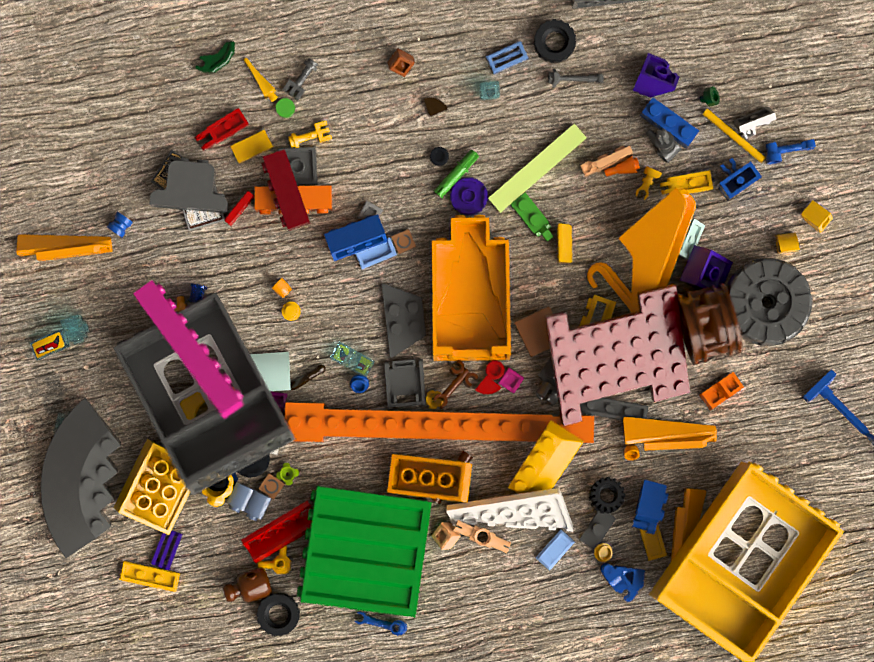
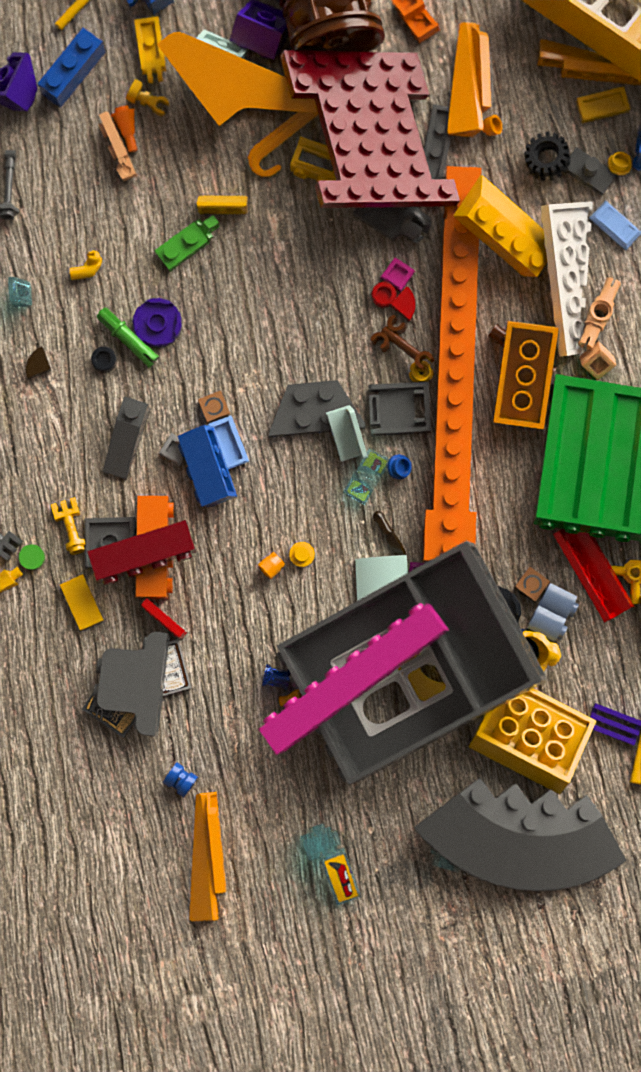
camera: 90 degrees left, 5 degrees down
(223, 128) = (56, 638): red hinge -> none
(282, 474) = (515, 555): lime plate -> none
(377, 175) = (126, 437): none -> dark grey slope
(383, 342) = (346, 433): none -> light aqua panel
(471, 293) = (284, 318): light orange panel -> none
(509, 142) = (89, 268): none -> yellow arm
(534, 331) = (335, 236): medium nougat tile -> none
(537, 168) = (124, 235): yellowish green tile -> none
(649, 506) = (562, 102): blue hinge -> none
(664, 143) = (101, 71): dark grey piece -> none
(710, 96) = (40, 17): dark green tile -> none

